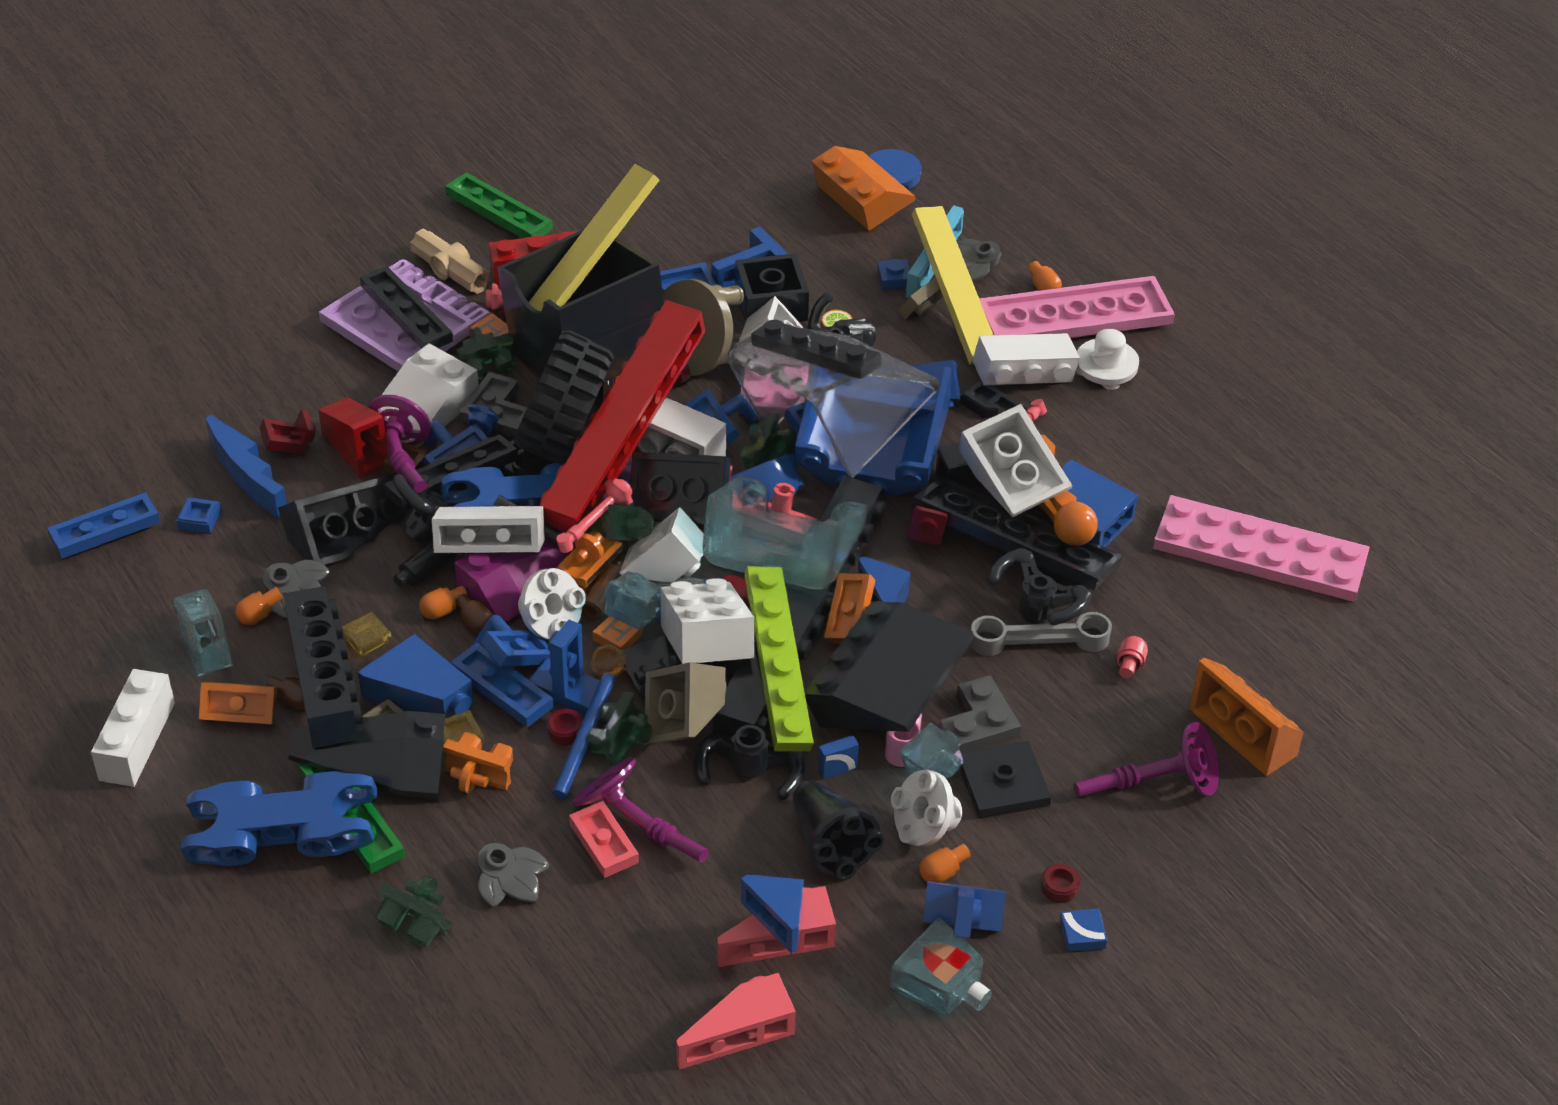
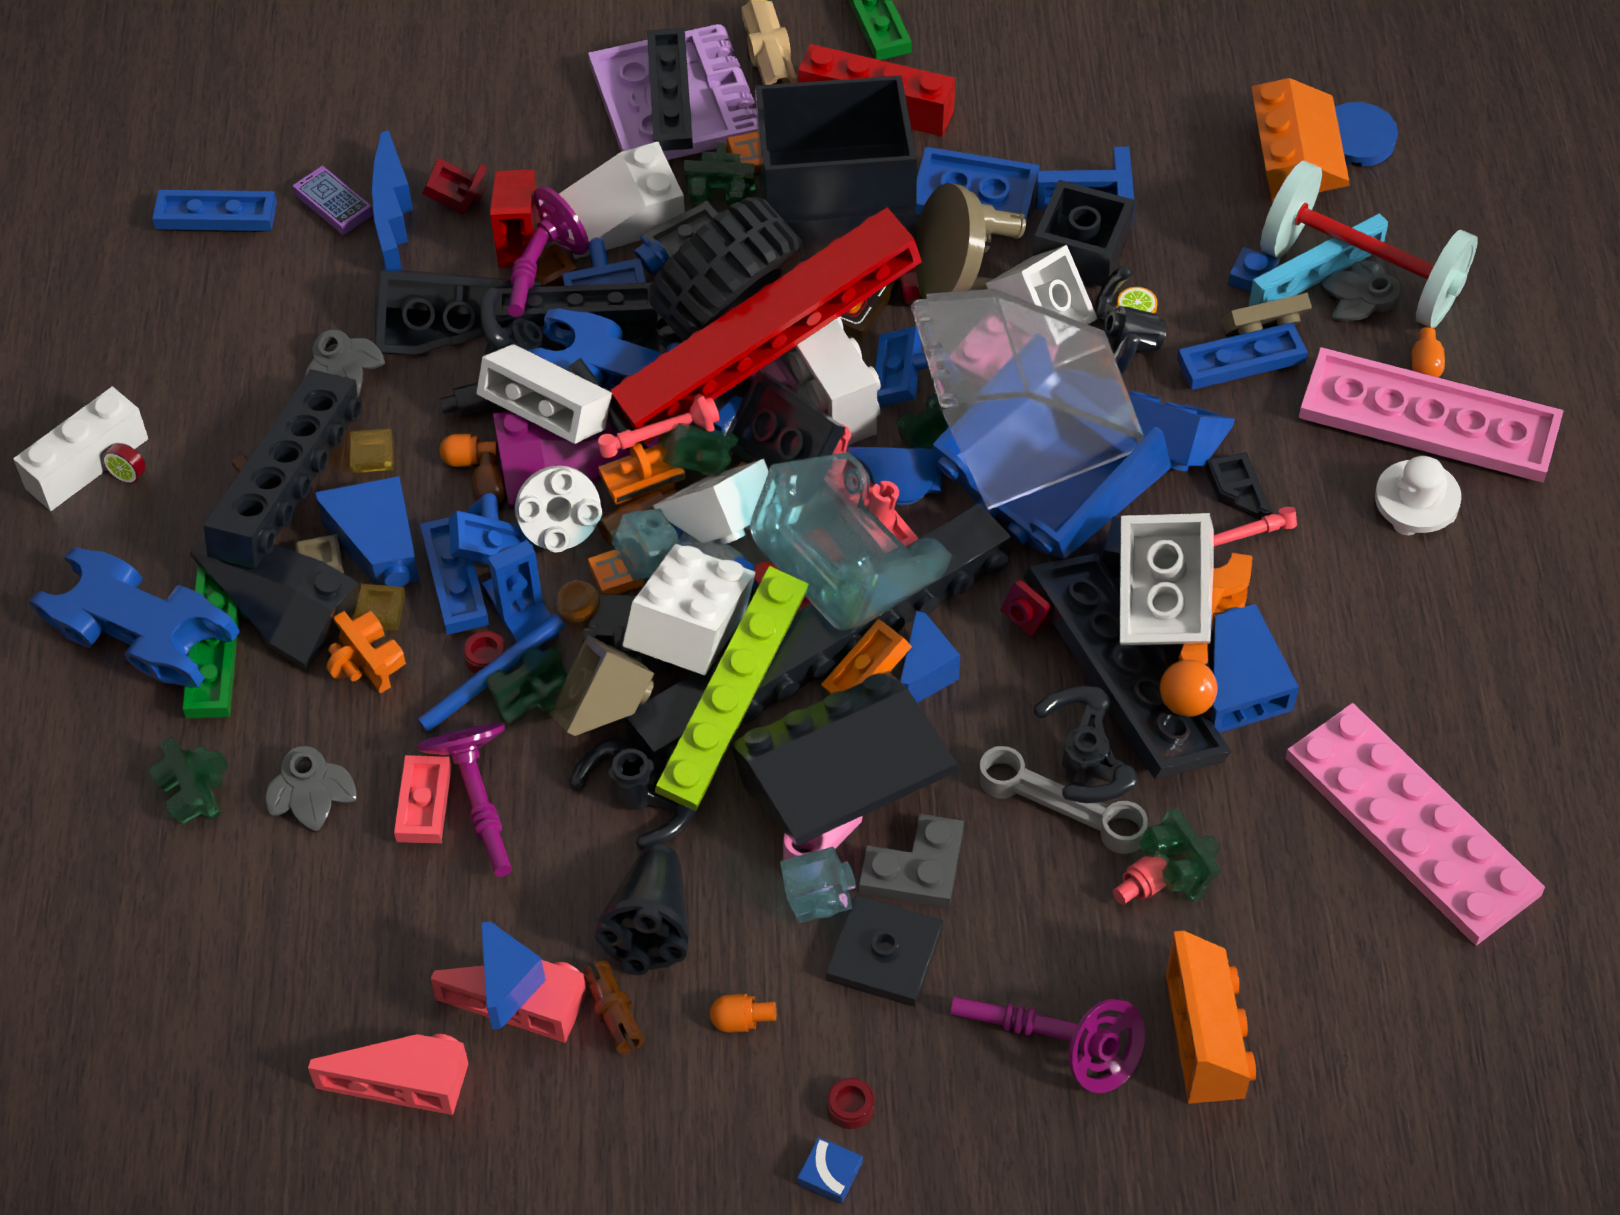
camera: 35 degrees right, 10 degrees up
(175, 723) = (124, 463): none -> tile
(193, 482) = (332, 200): none -> tile
(198, 515) = (313, 239): blue tile -> none
(198, 618) = (209, 361): clear light blue torso -> none
(238, 703) = (193, 468): orange plate -> none
(257, 606) = (289, 369): orange cylinder -> none
(596, 238) = (878, 98): light yellow tile -> none
(816, 349) = (997, 344): black plate -> none
(838, 757) = (723, 832): blue tile -> none
(856, 904) = (613, 1007): none -> reddish brown pin
(923, 330) = (1242, 356): none -> blue plate
(925, 808) = (762, 943): white plate -> none
(940, 971) = (637, 1132): clear light blue torso -> none
(952, 277) = (1297, 319): light yellow tile -> none
(964, 907) = (710, 1073): blue bracket -> none
(1025, 359) = (1312, 450): white brick -> none
(1028, 224) = (1294, 209): none -> light aqua piece
(1152, 625) = (1188, 857): none -> clear green hips

